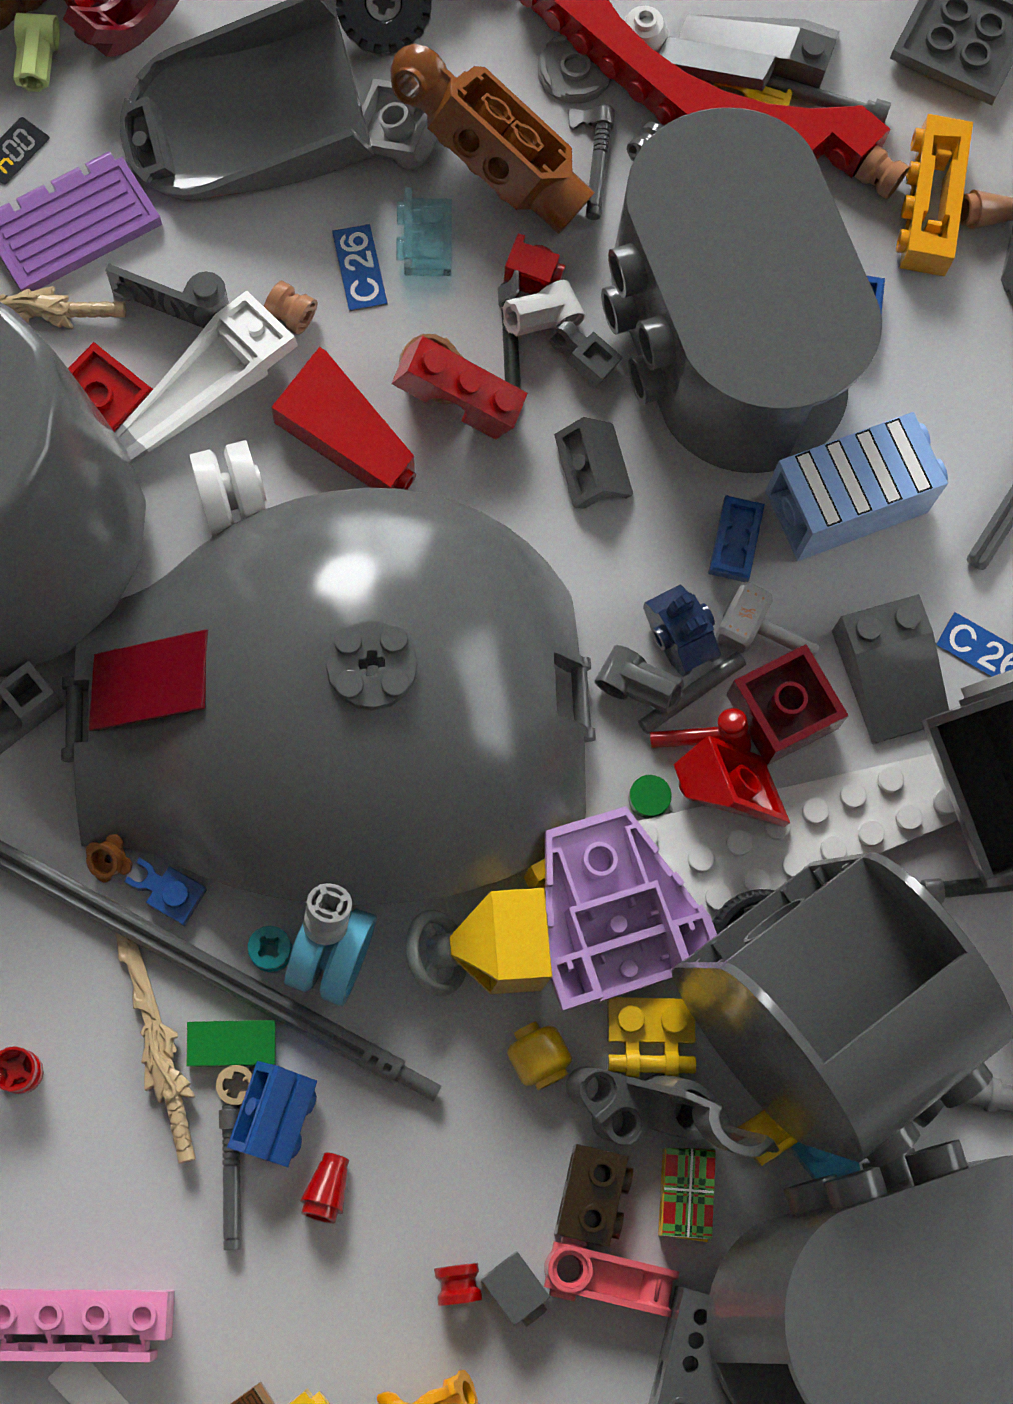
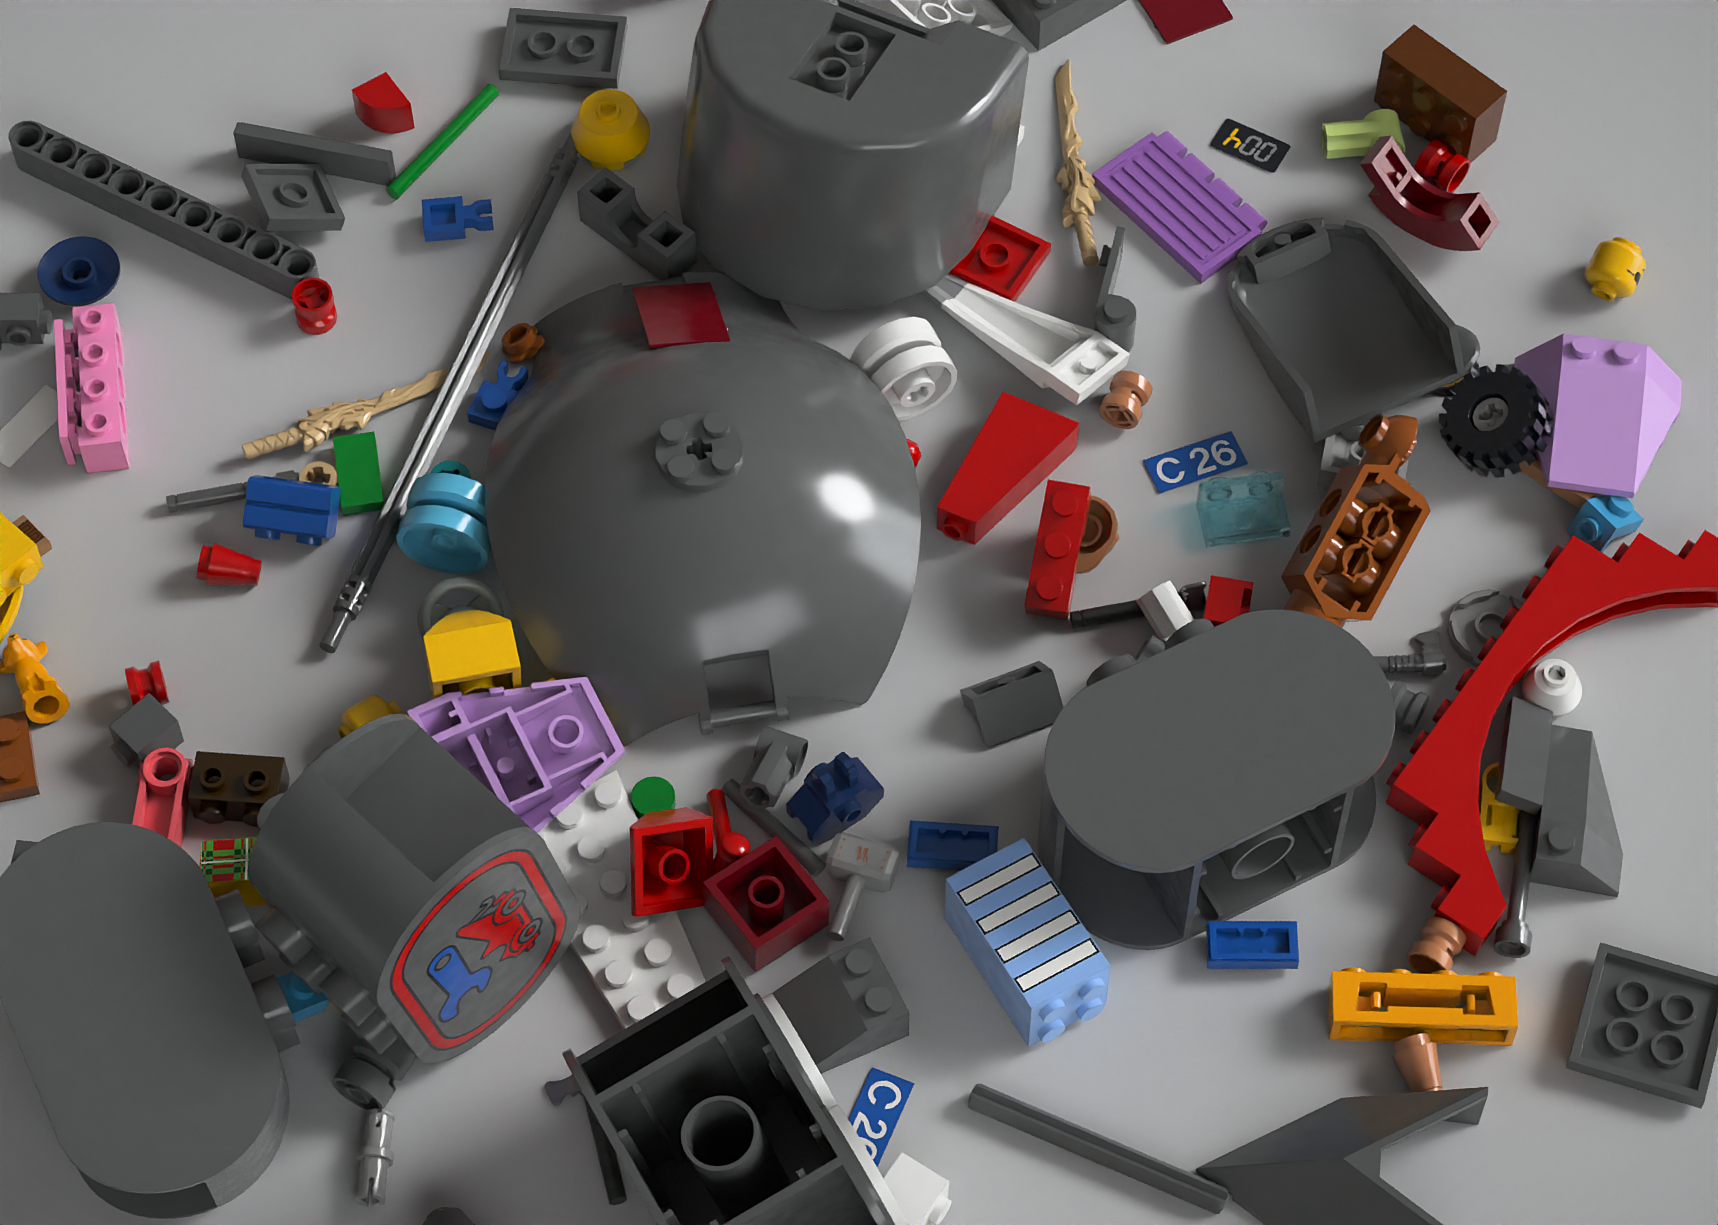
camera: 90 degrees right, 15 degrees down
(327, 914) = (469, 485): light grey wheel -> none

